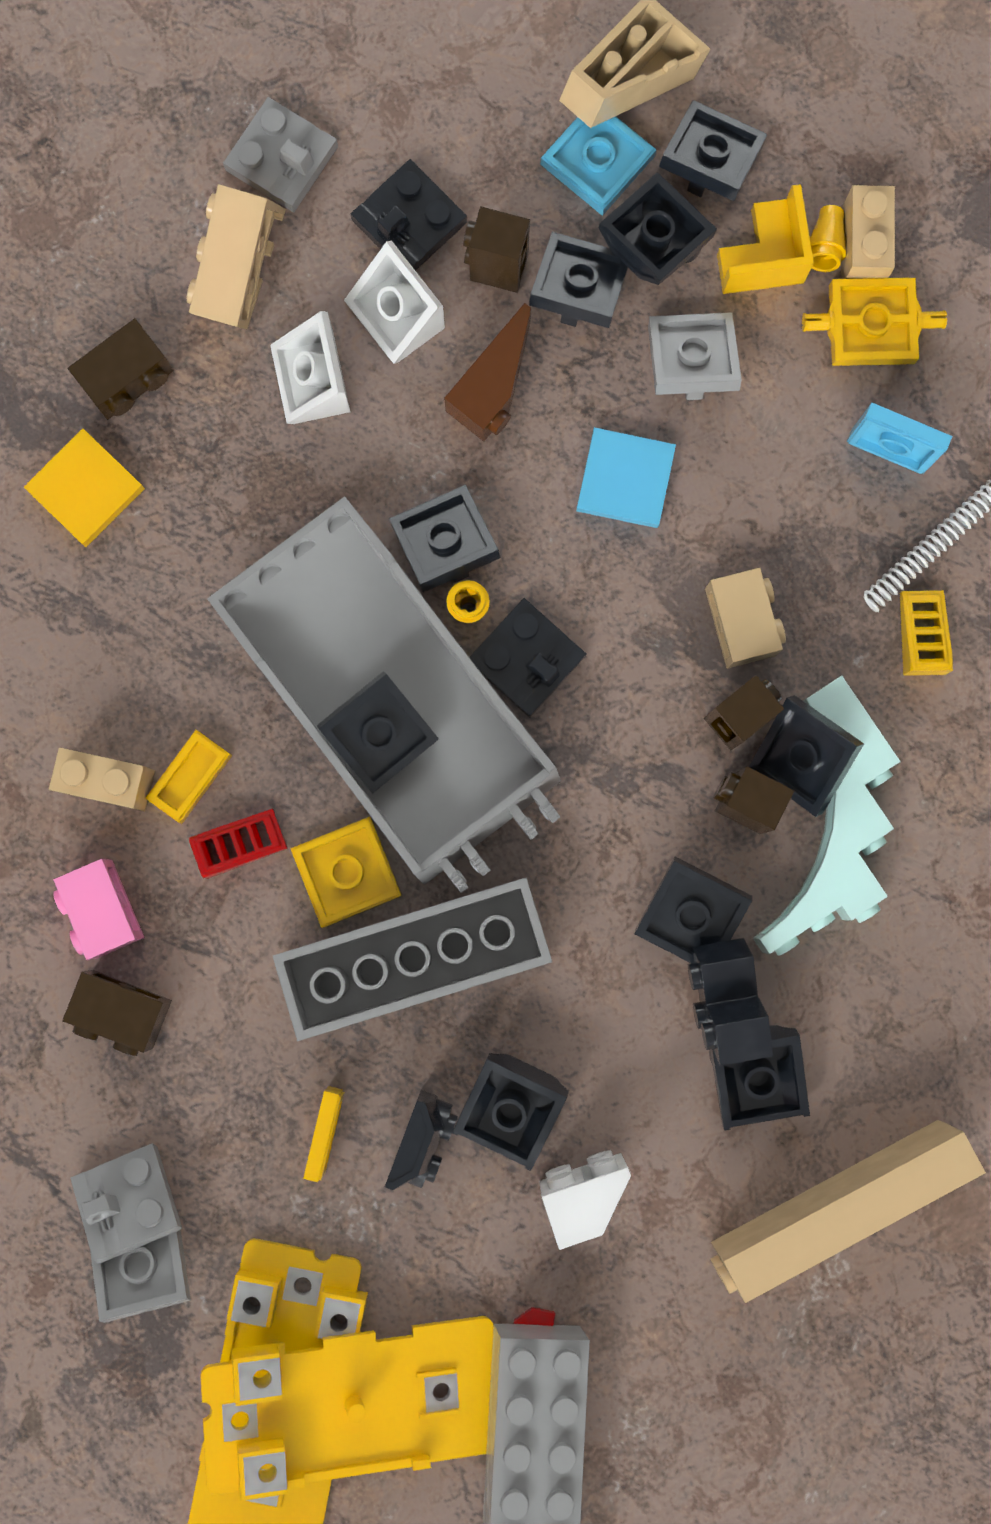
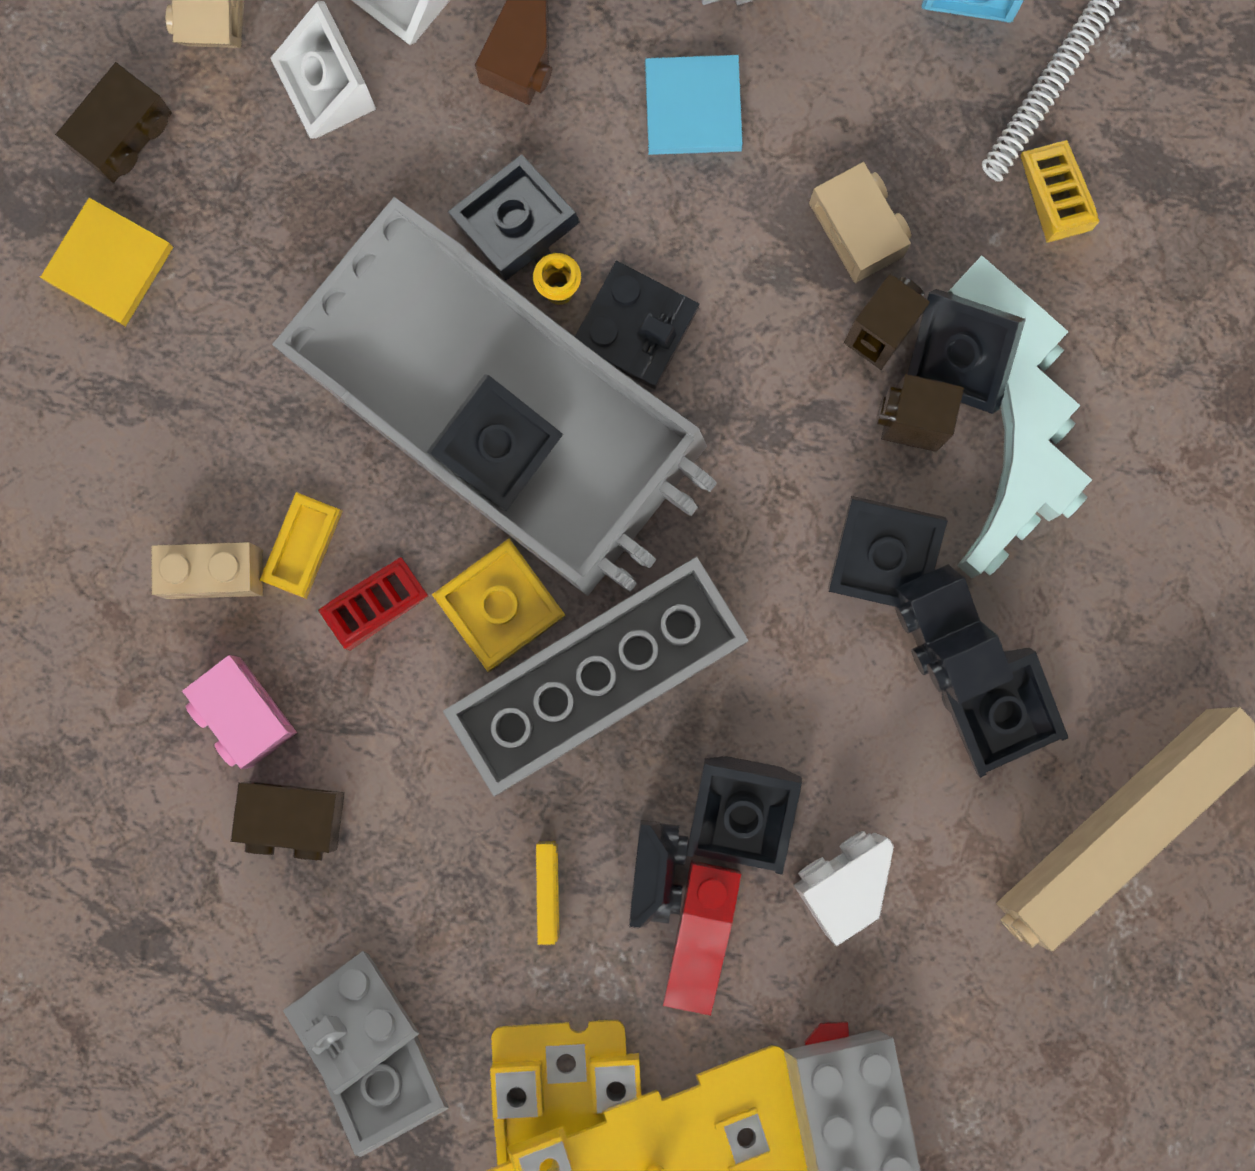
camera: 10 degrees left, 0 degrees up
(448, 1206) = (702, 937): none -> slope

